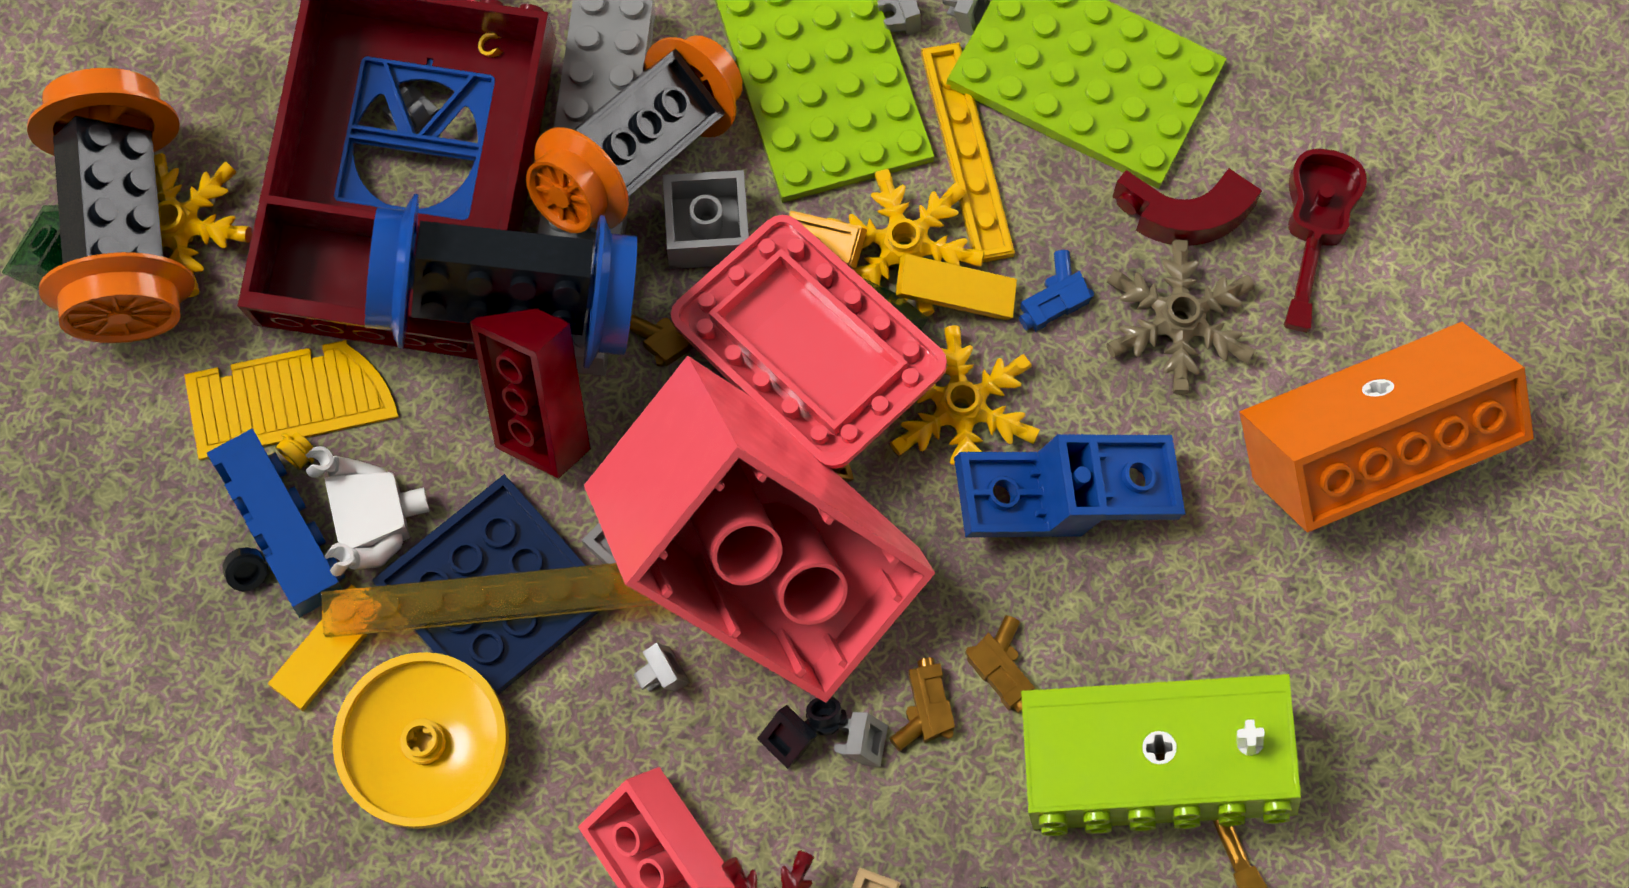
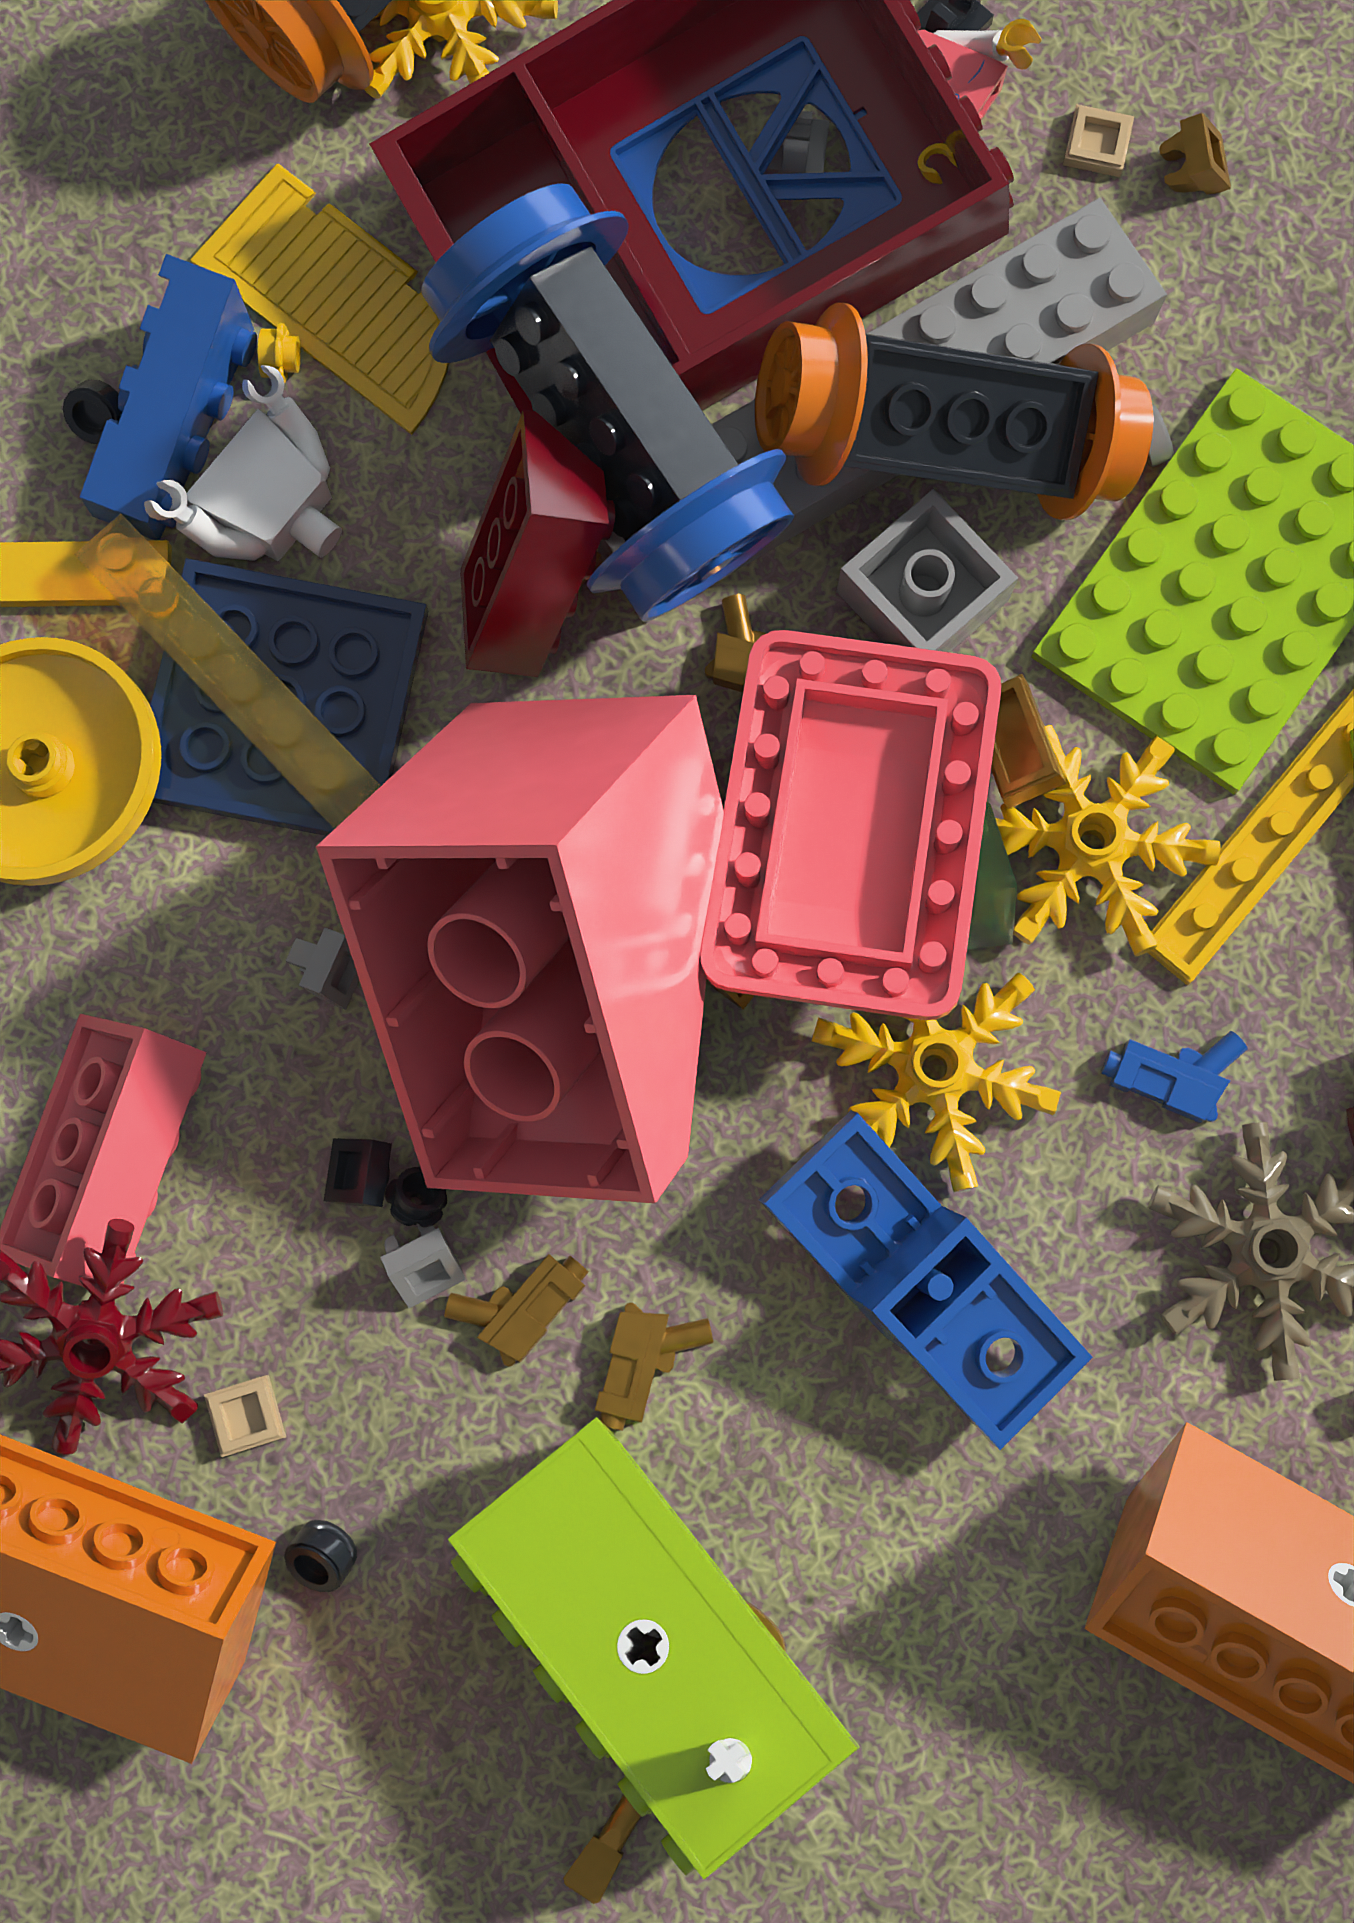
camera: 55 degrees right, 10 degrees up
(956, 287) = (1080, 946): yellow tile -> none

